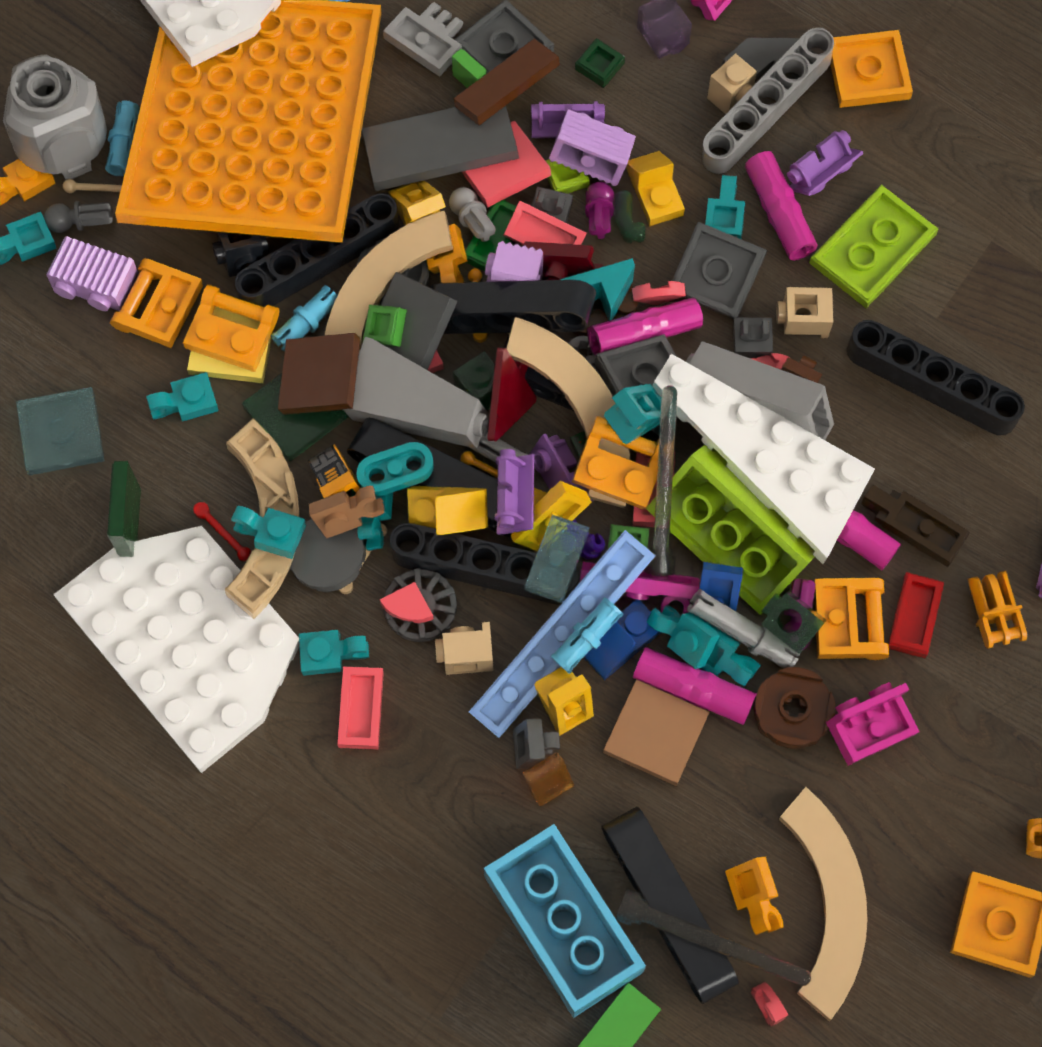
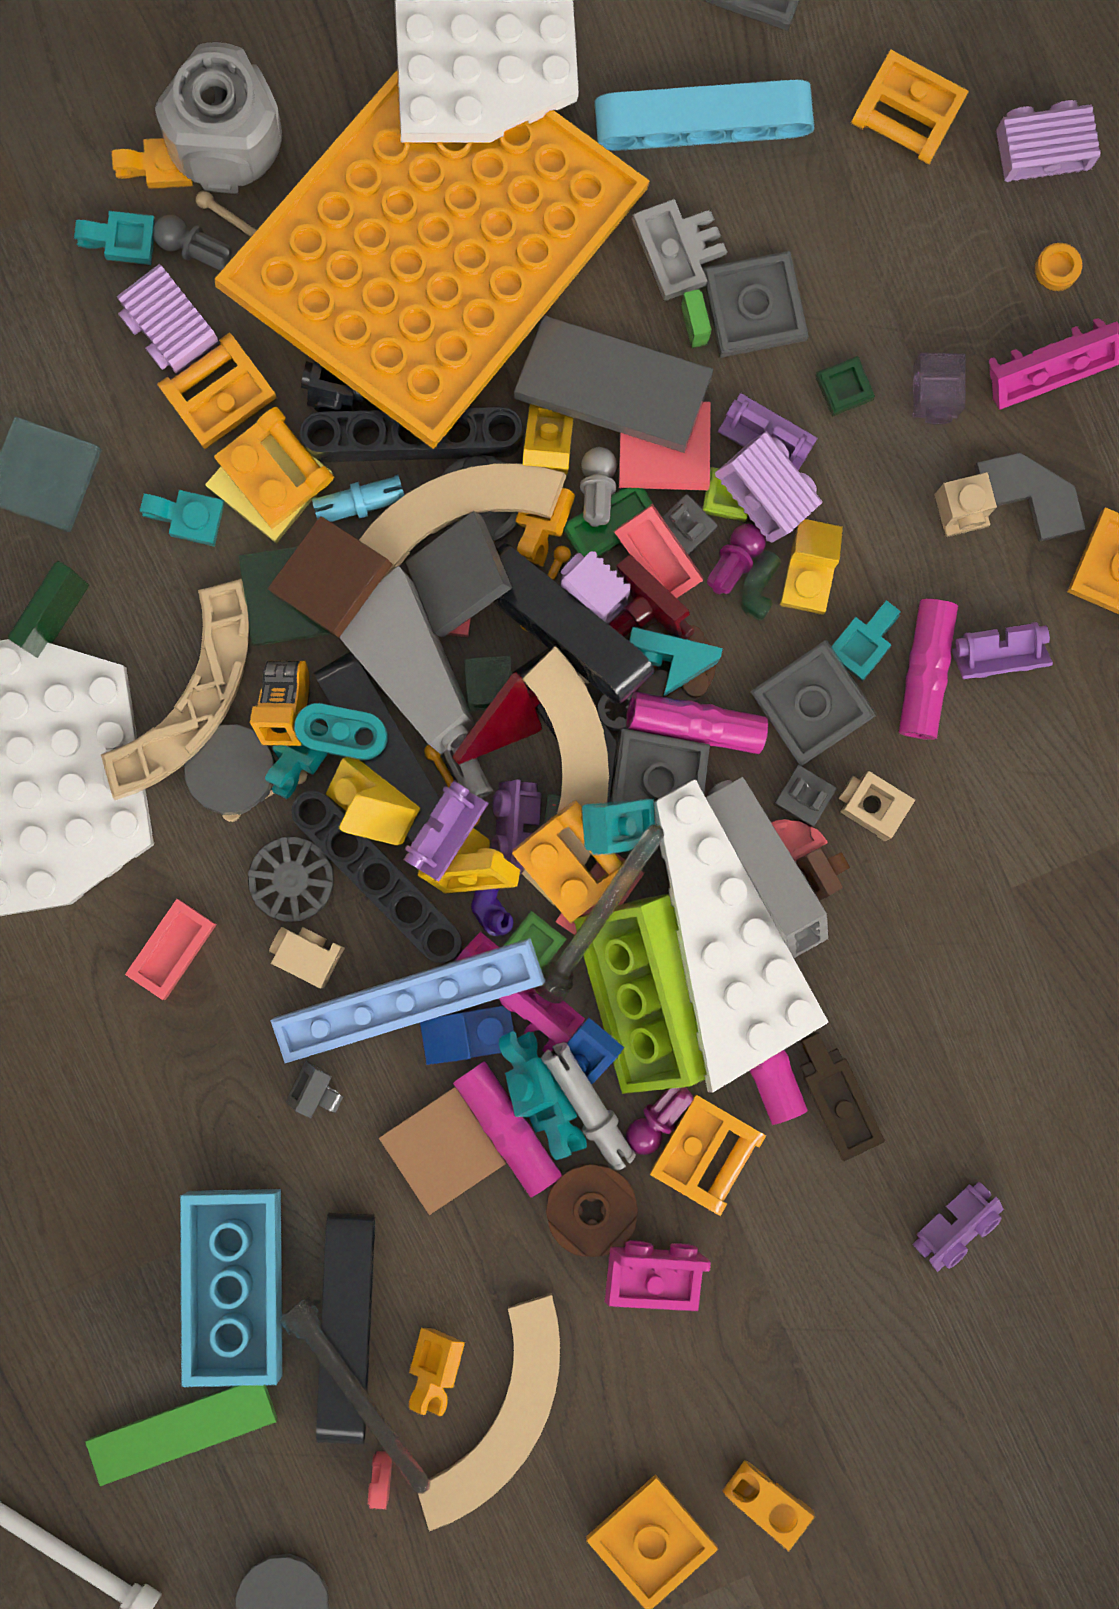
camera: 25 degrees right, 15 degrees up
(121, 137) = (288, 174): medium azure pin -> none
(202, 511) = (136, 647): red hinge -> none
(273, 533) = (184, 723): teal plate -> none
(324, 651) = (170, 872): teal plate -> none
(343, 513) = (260, 745): medium nougat plate -> none
(385, 324) = (428, 562): bright green tile -> none
(407, 605) = (274, 876): coral tile -> none
(506, 81) = (725, 356): reddish brown tile -> none
(548, 779) = (305, 1136): clear orange tile -> none
(557, 558) = (443, 926): clear light blue plate -> none
(565, 699) = (368, 1065): yellow slope -> none
(587, 635) = (424, 1023): medium azure pin -> none
(660, 295) = (735, 692): coral tile -> none
(773, 85) = (1007, 529): light grey beam -> none
(797, 638) = (631, 1147): clear green brick -> none
(873, 246) = (998, 770): lime tile -> none
(915, 615) = (776, 1188): red tile -> none
(953, 374) = (980, 969): black beam -> none
(996, 604) = (858, 1236): light orange arm -> none

